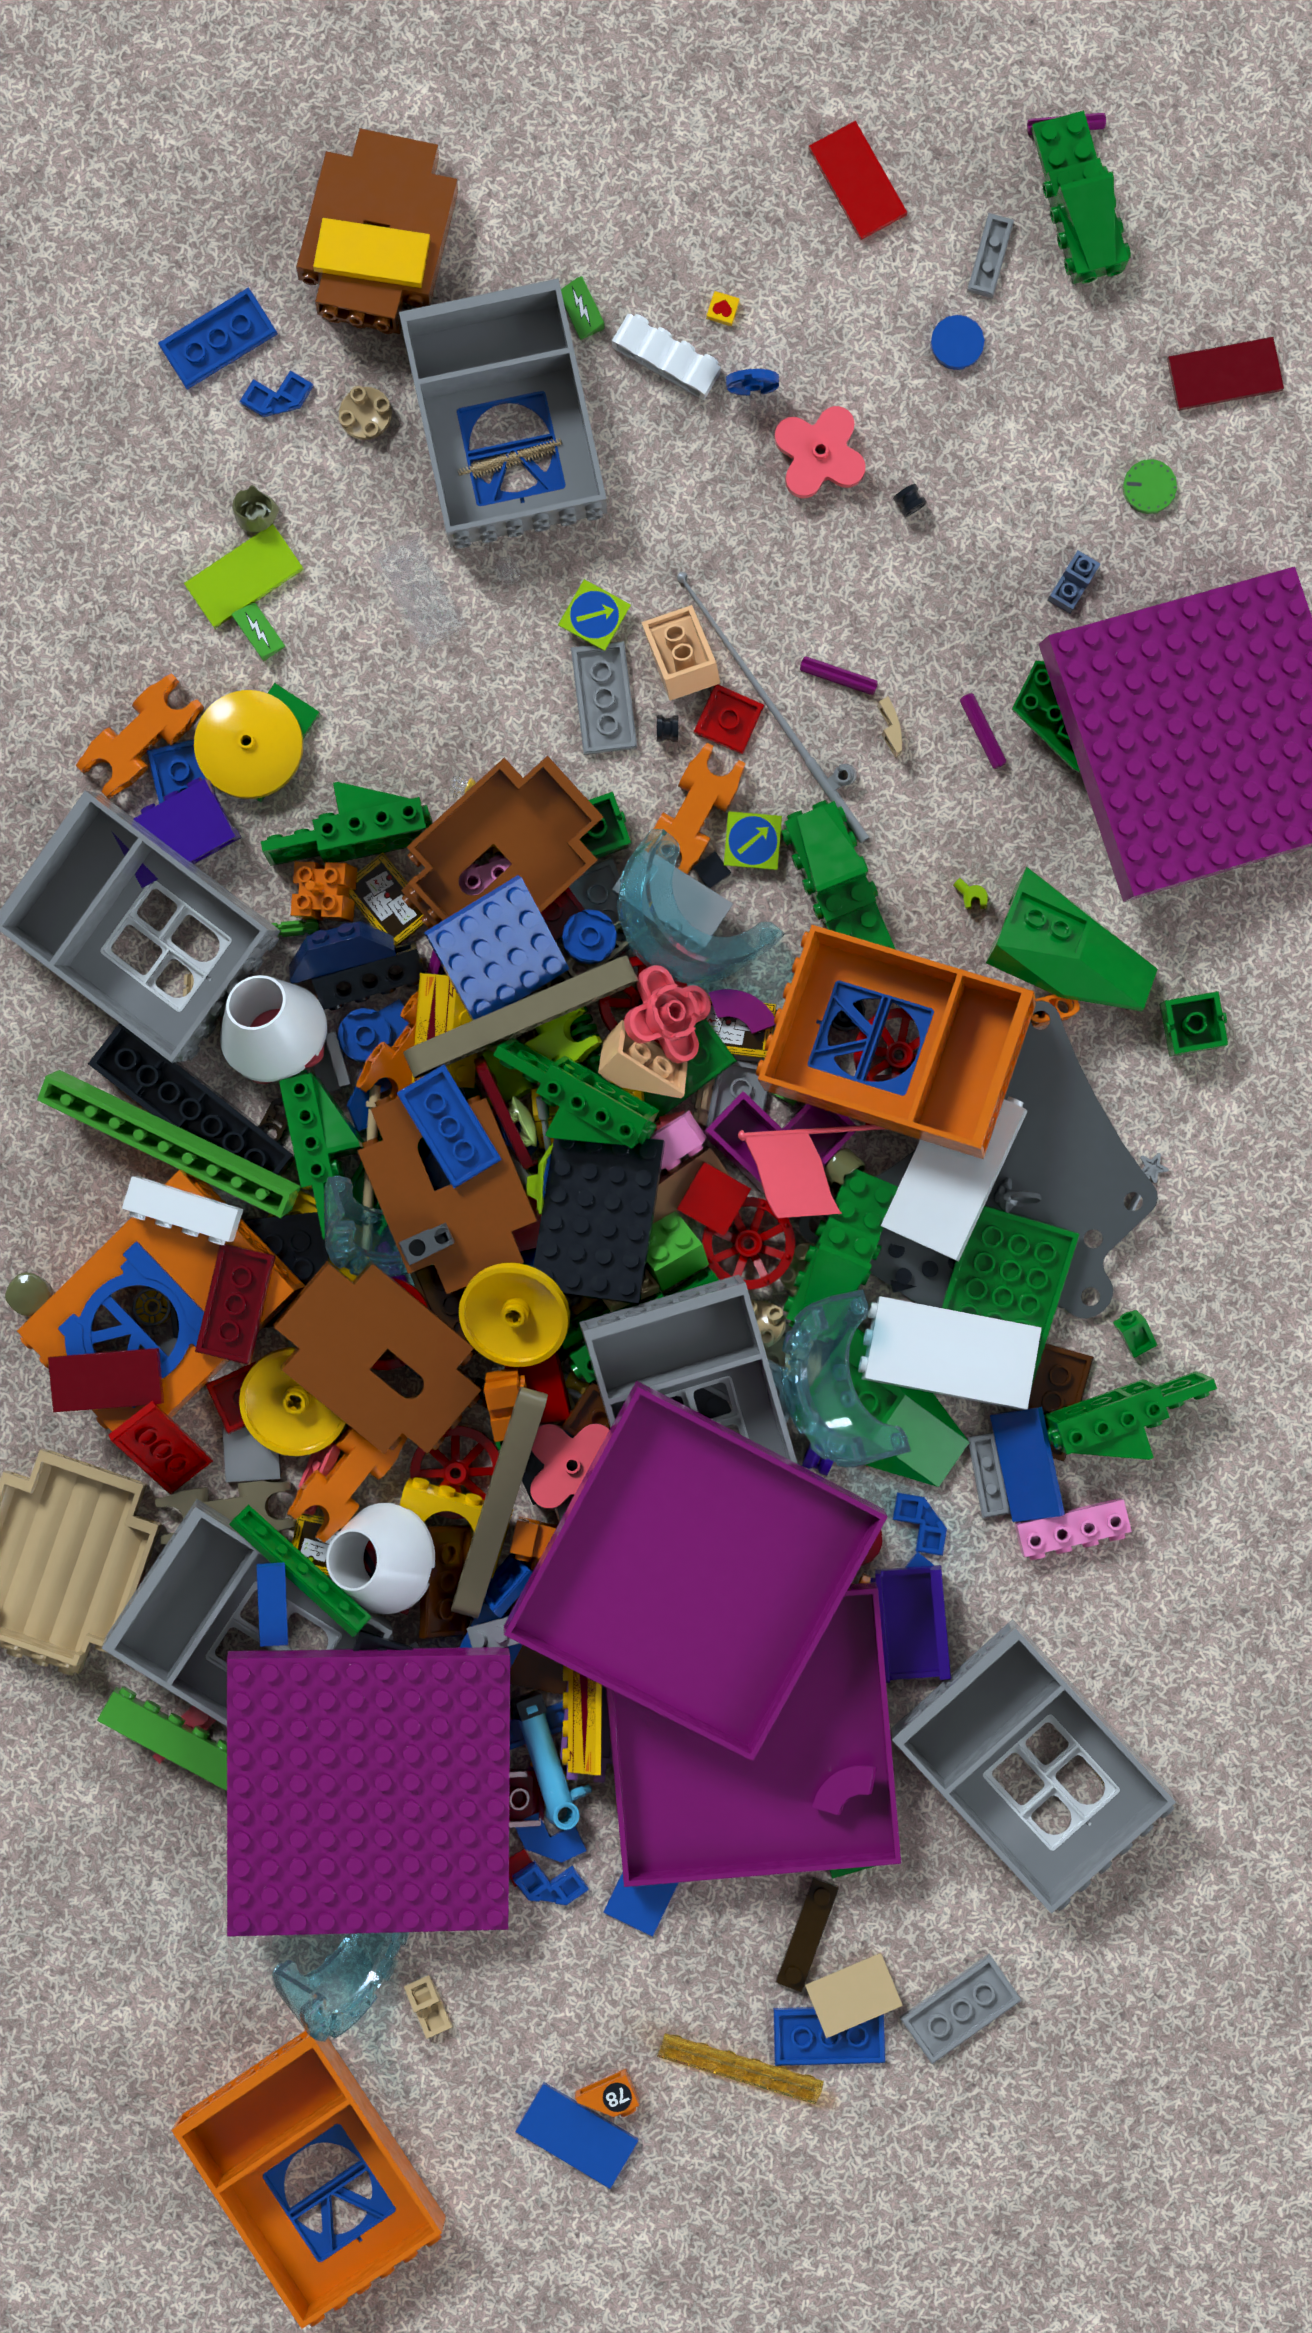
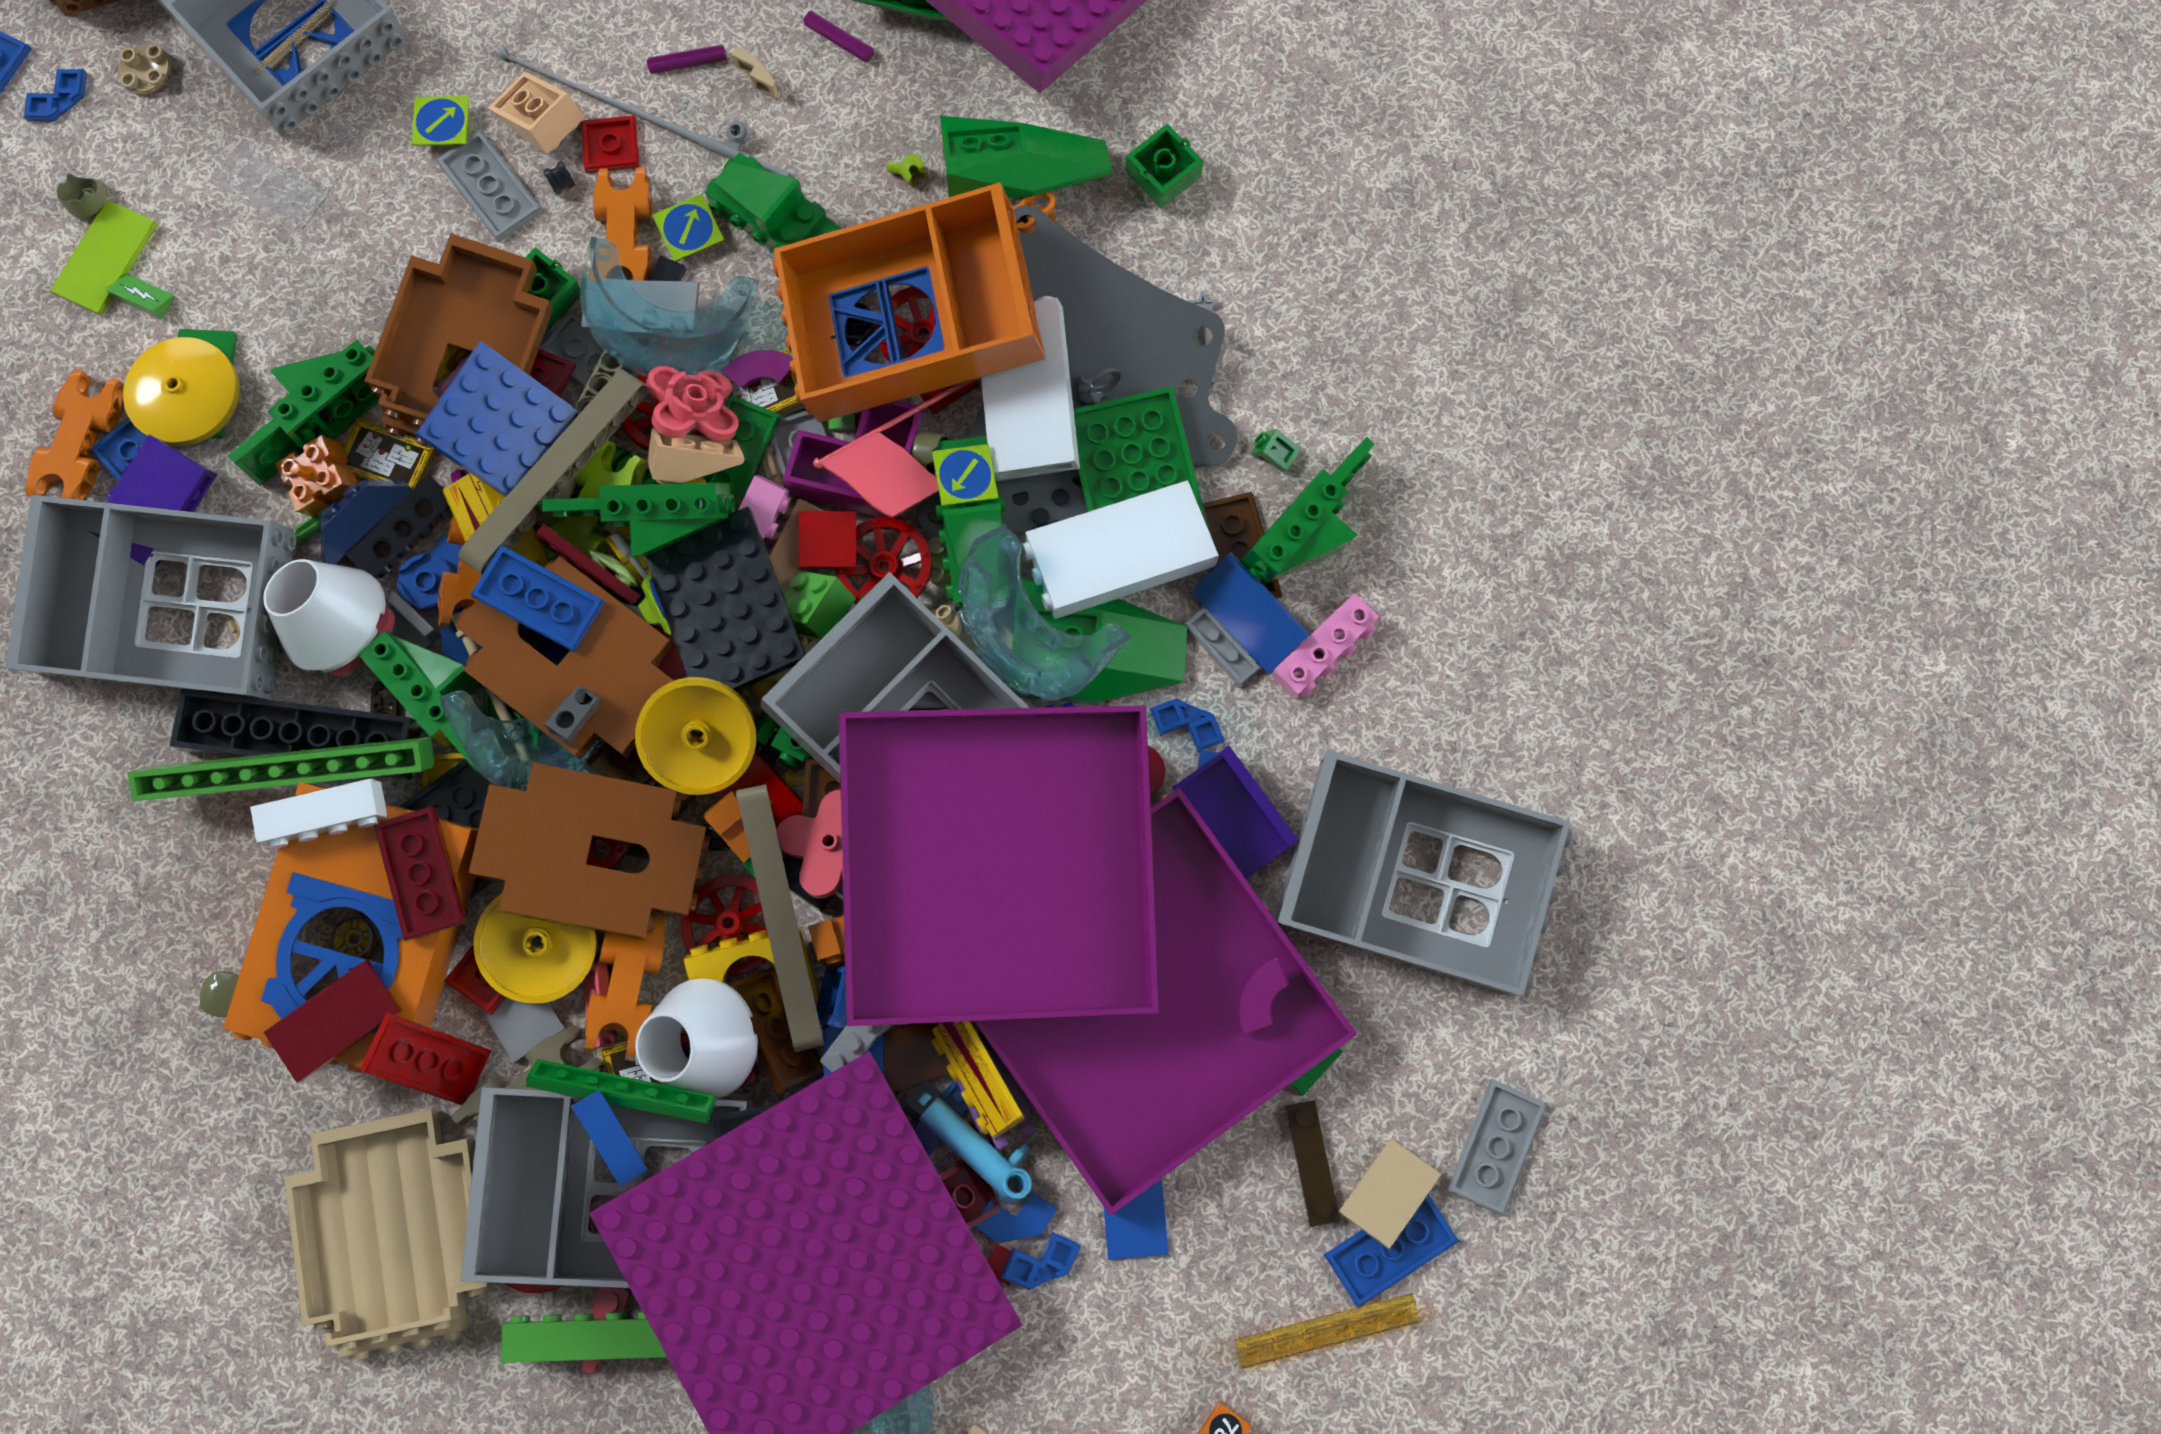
camera: 30 degrees left, 10 degrees down
(589, 936) = (581, 376): blue tile -> none
(858, 1217) = (965, 475): none -> piece

